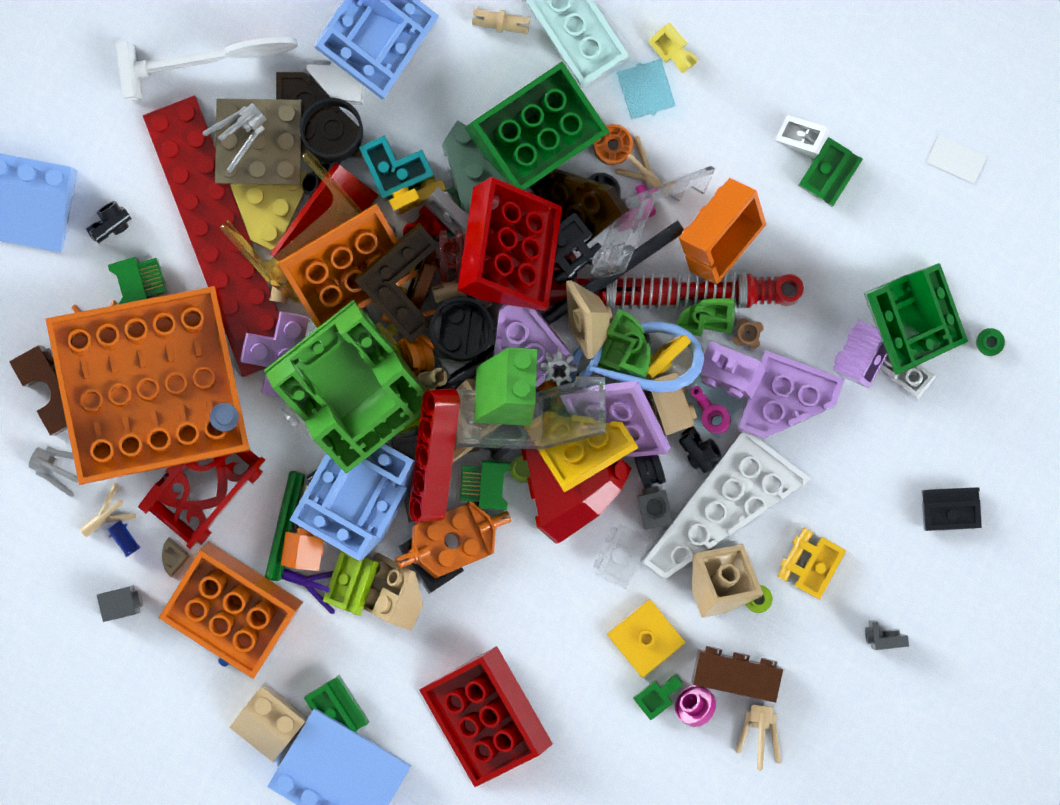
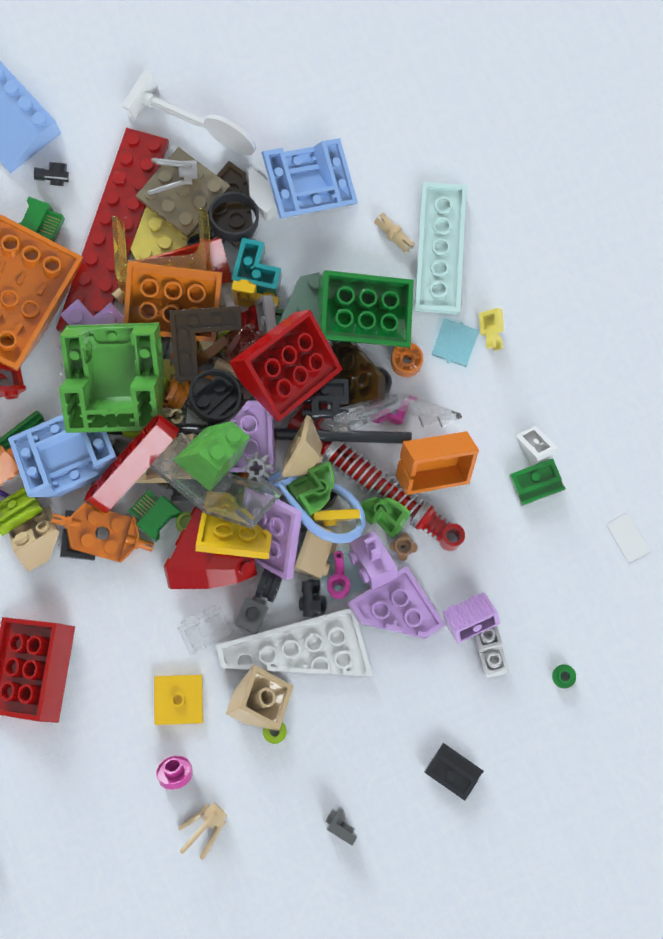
camera: 35 degrees right, 10 degrees down
(224, 417) = (17, 336): sand blue plate -> none
(645, 169) = (415, 391): tan plant -> none
(656, 698) = (152, 744): green plate -> none
(737, 674) = (220, 773): reddish brown brick -> none
(818, 569) = (332, 742): yellow plate -> none
(916, 317) = (525, 619): green slope -> none

